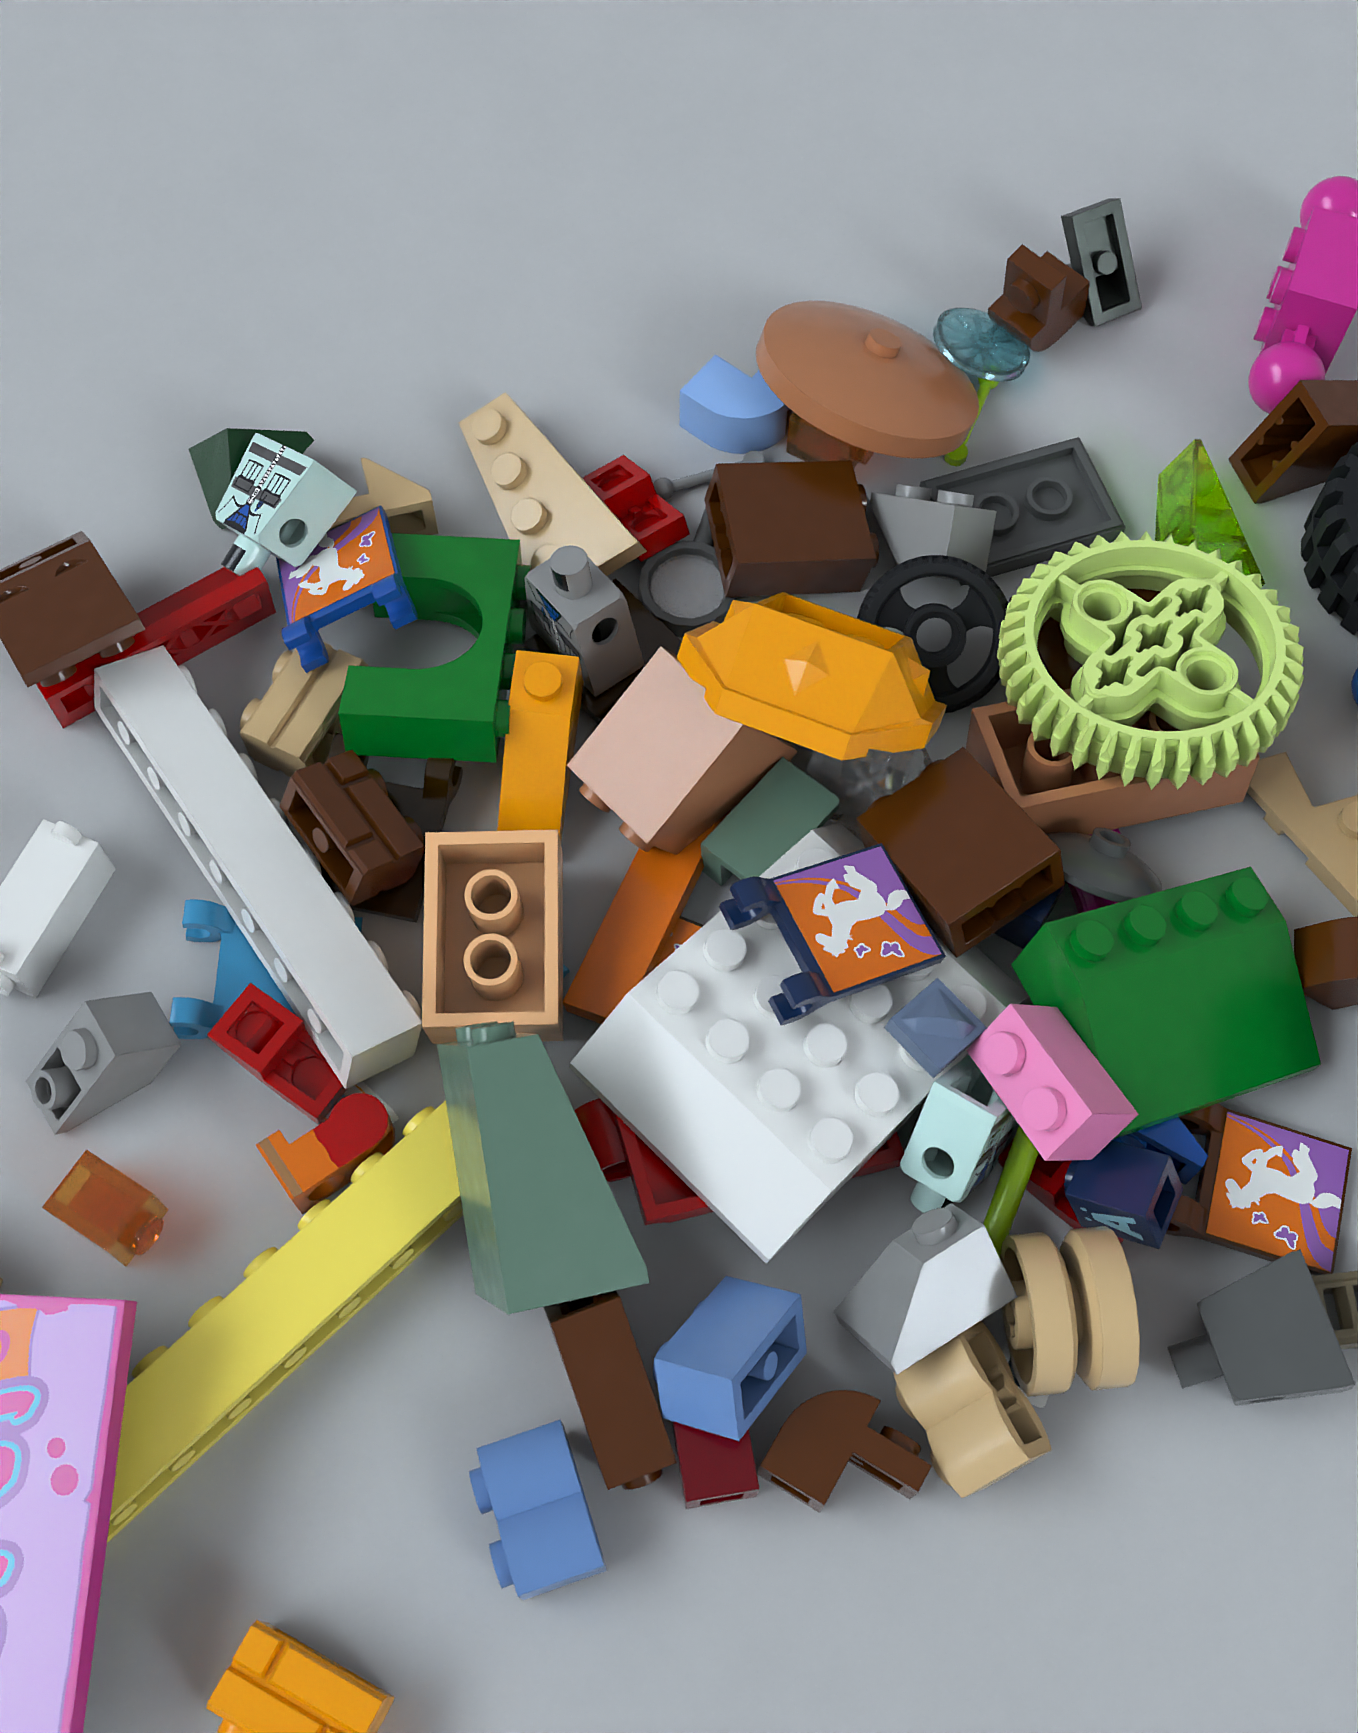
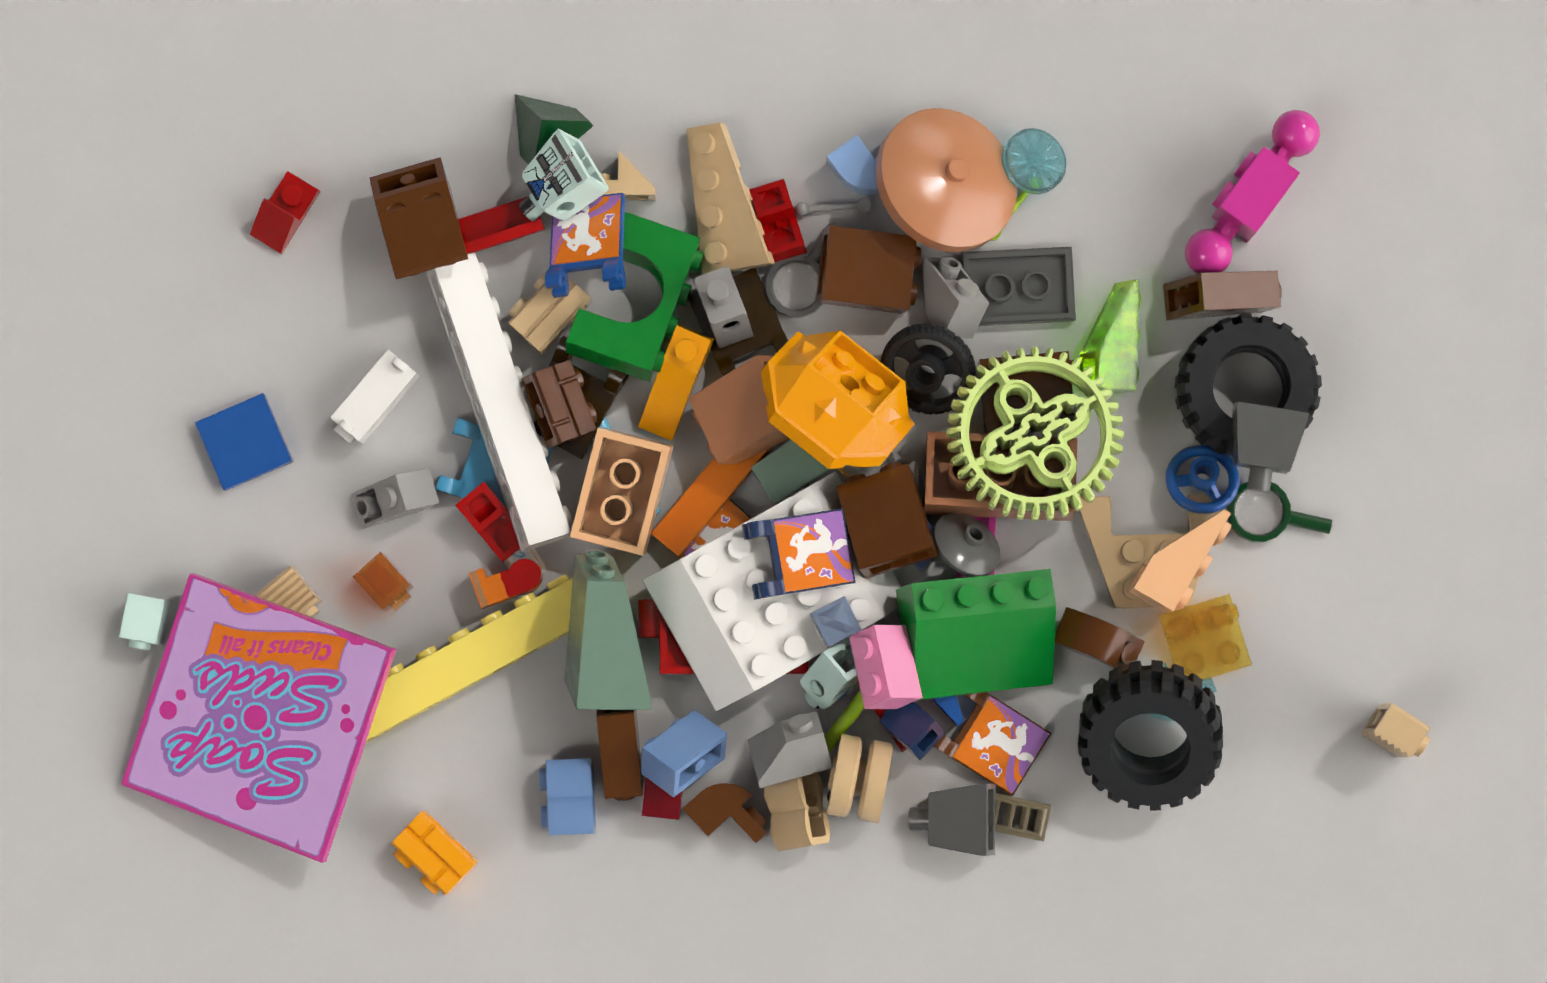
camera: 20 degrees right, 20 degrees up
(1039, 299) = (1078, 145): reddish brown brick -> none
(1103, 255) = (1130, 124): pearl dark grey slope -> none

